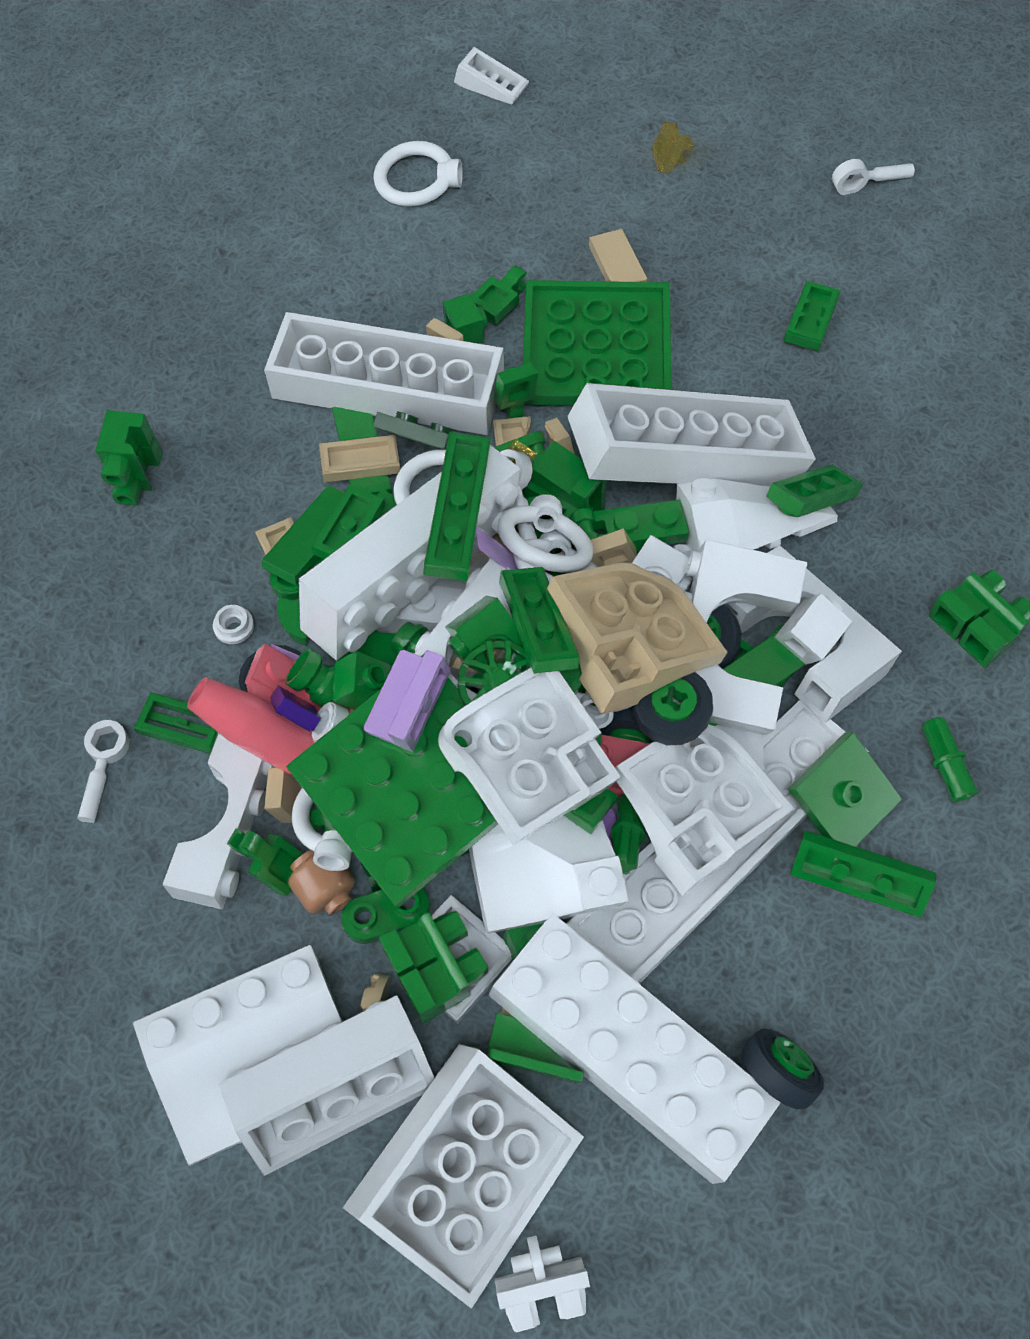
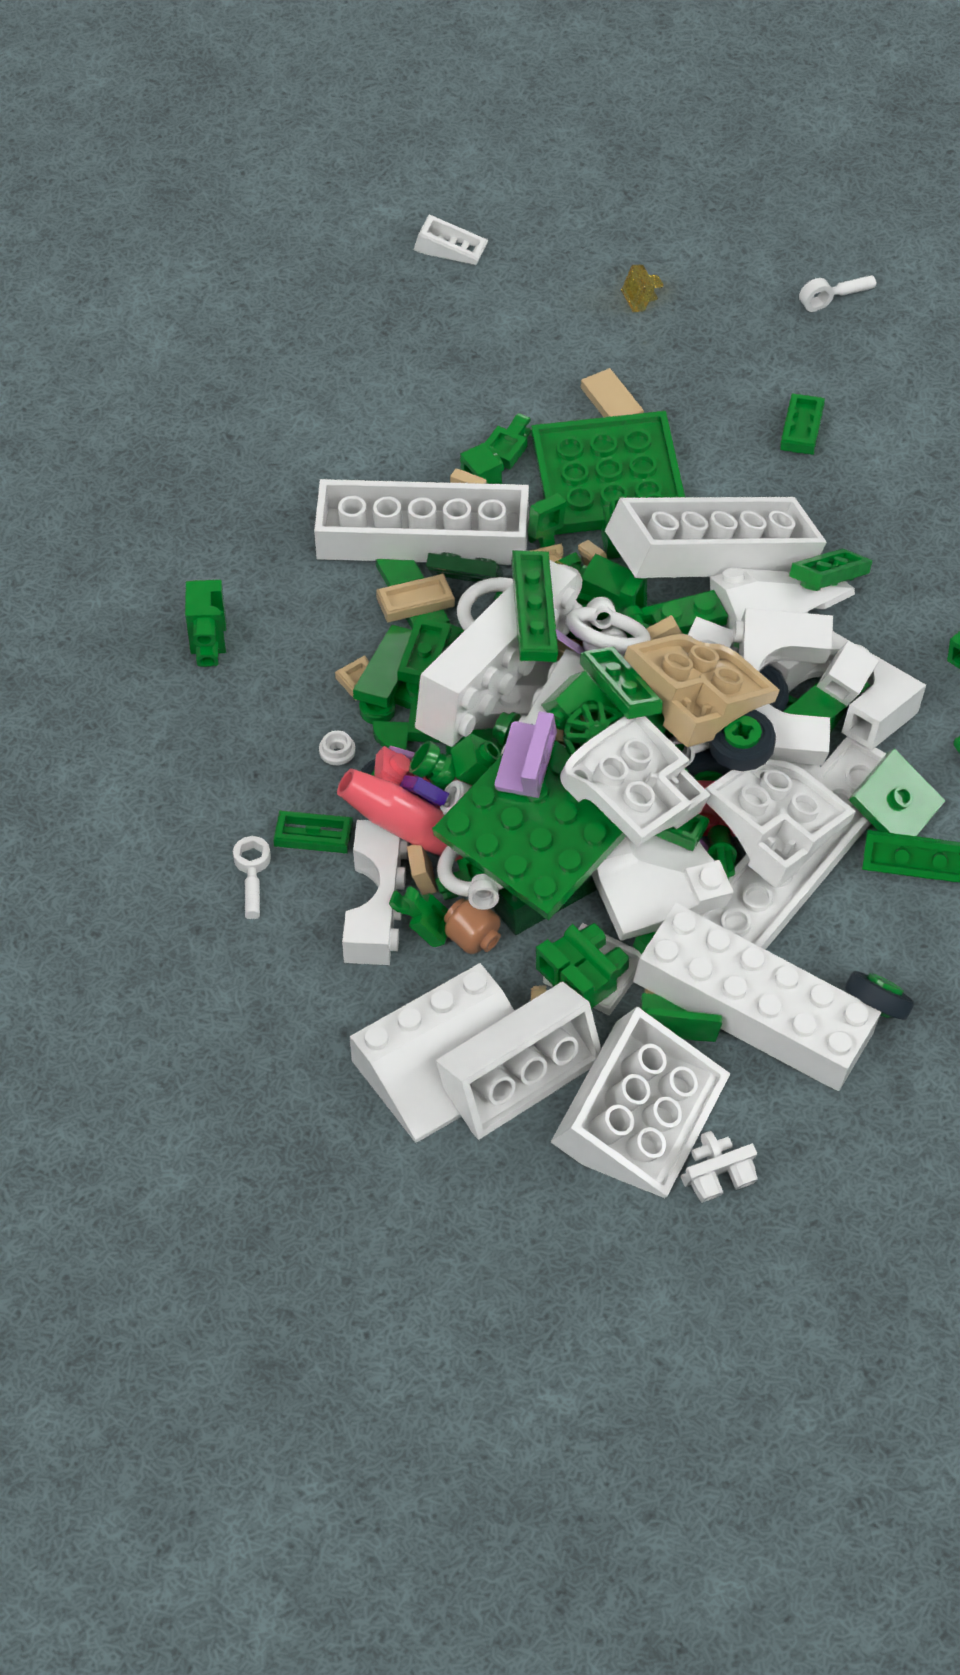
camera: 10 degrees left, 10 degrees down
(384, 915) = (526, 940): green plate -> none
(448, 173) = (431, 336): white piece -> none

